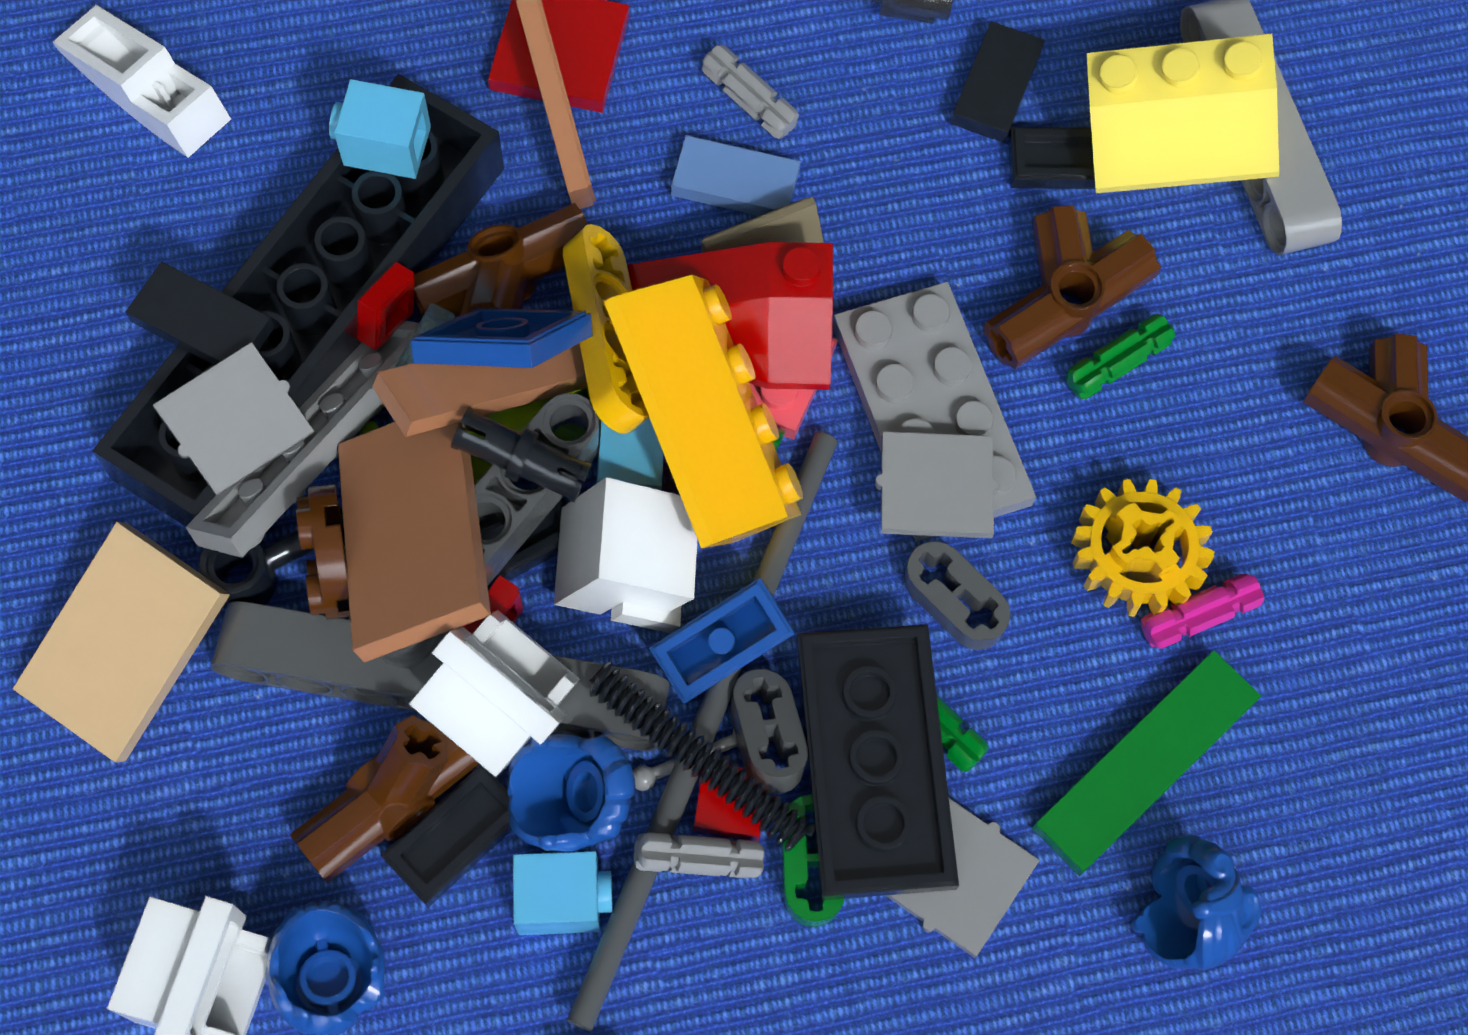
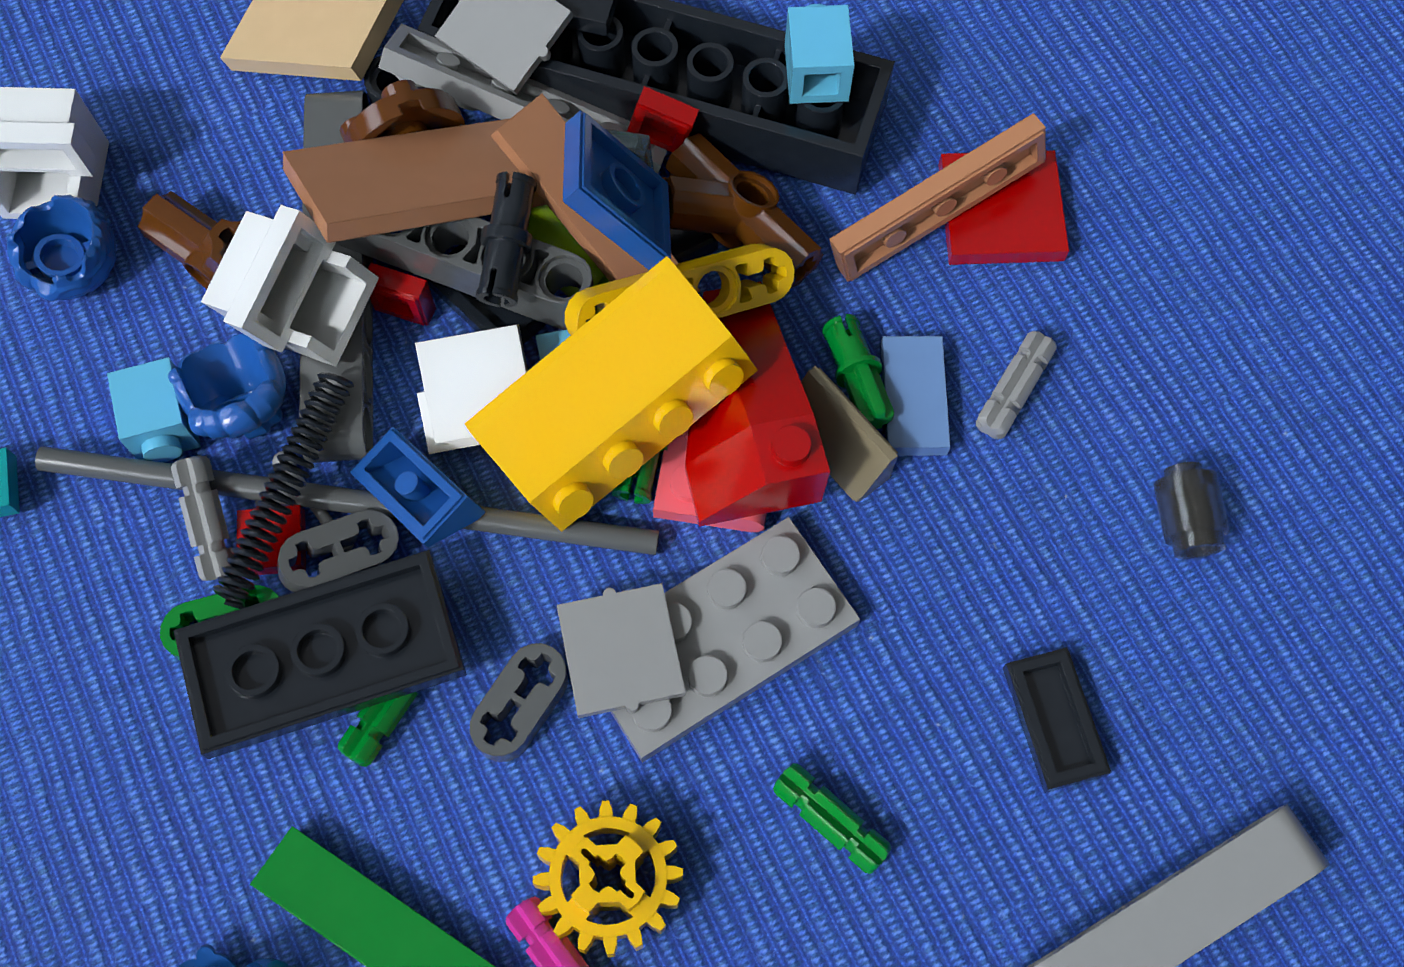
camera: 80 degrees right, 0 degrees up
(451, 836) = (180, 315): black tile -> none
(700, 214) = (858, 370): none -> green axle
(989, 879) = (237, 788): light grey piece -> none
(997, 82) = (1121, 624): black tile -> none
(1071, 268) = (917, 736): reddish brown piece -> none
(1184, 113) = (1130, 819): light yellow slope -> none

